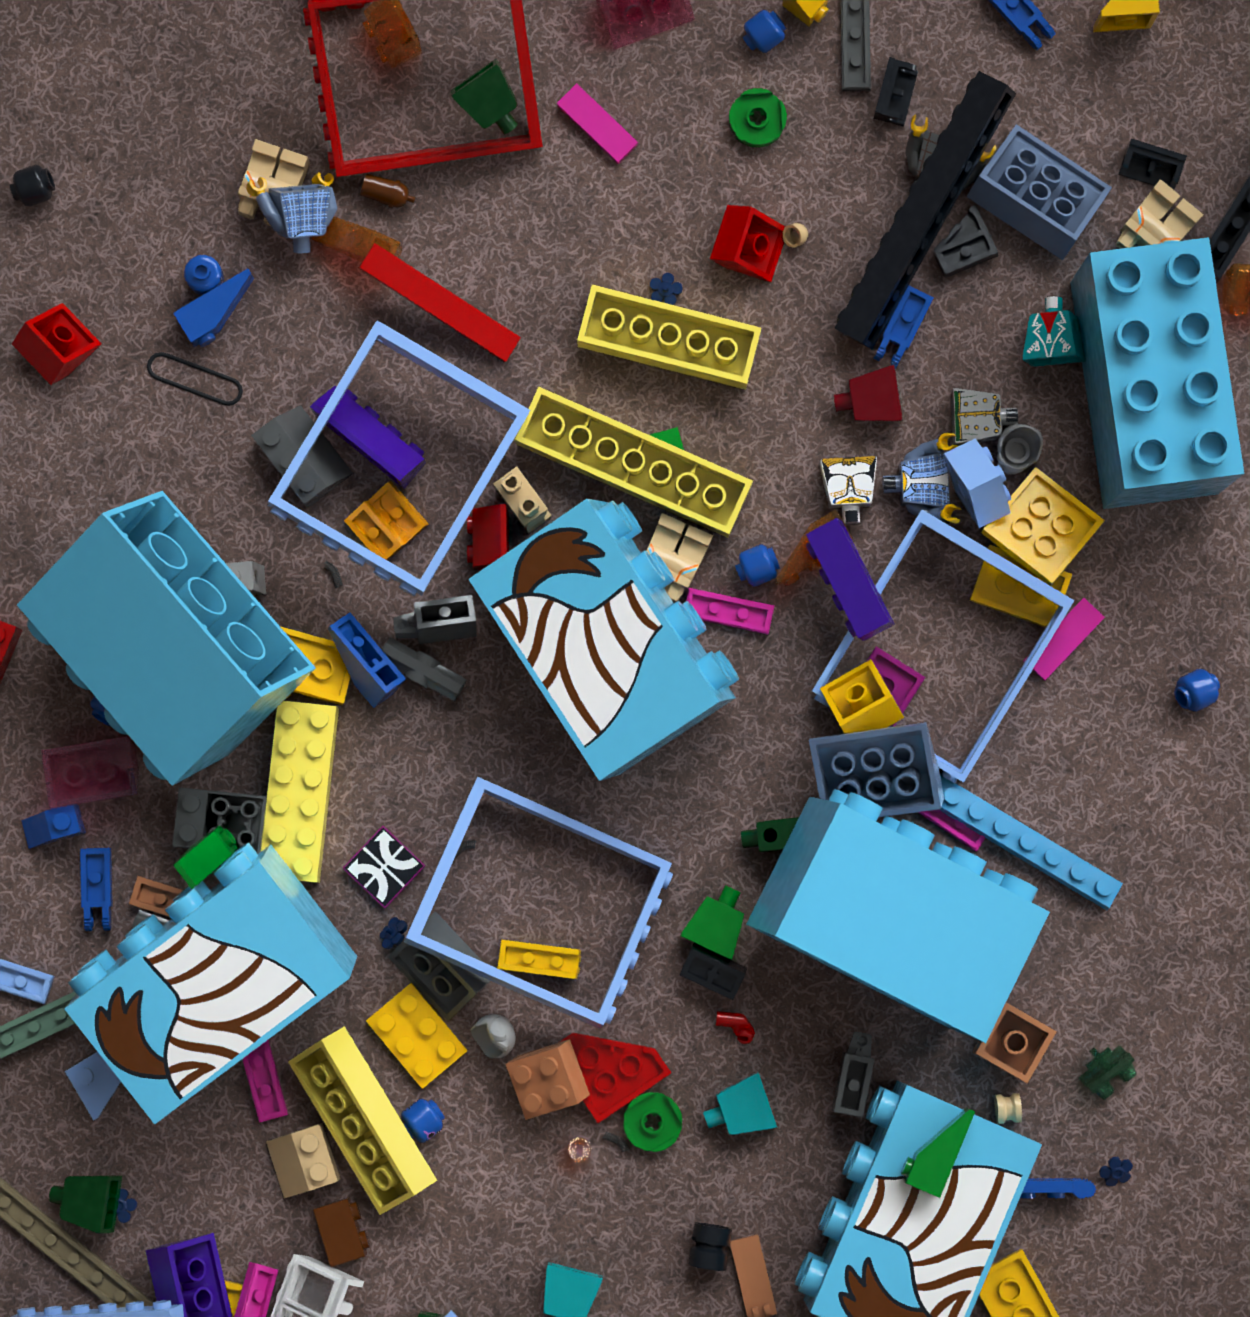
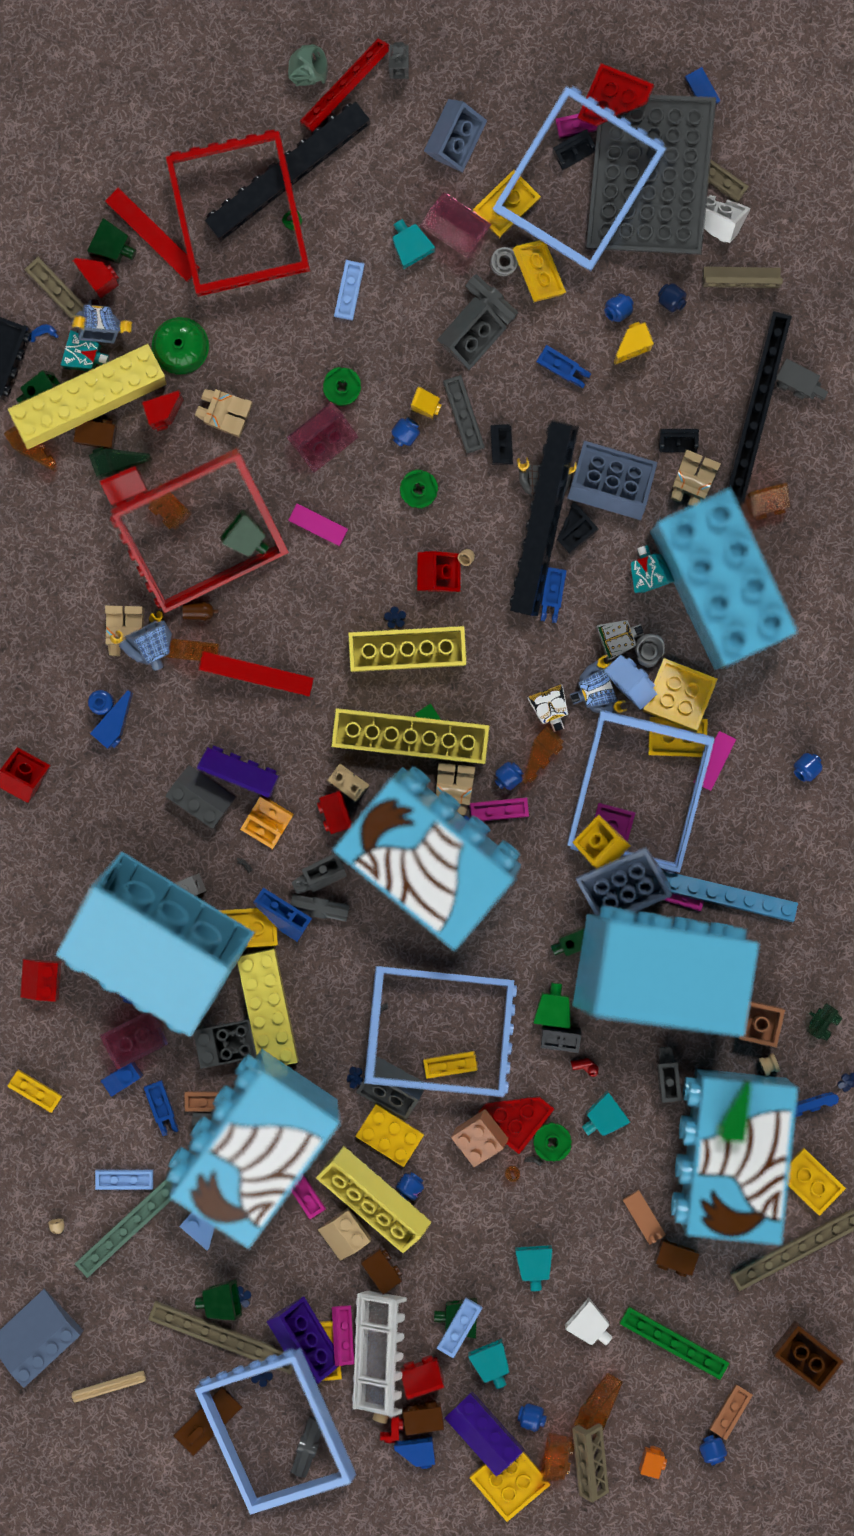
camera: 15 degrees left, 5 degrees up
(190, 389) = (114, 776): black piece -> none
(206, 856) = (224, 1071): green slope -> none
(384, 867) = (335, 1037): tile -> none
(447, 372) = (280, 720): light blue door -> none
(494, 1035) = (438, 1120): light grey hair -> none
(710, 1246) = (612, 1209): black wheel -> none
(850, 580) = (569, 770): dark purple brick -> none
(872, 396) = (547, 646): dark red torso -> none

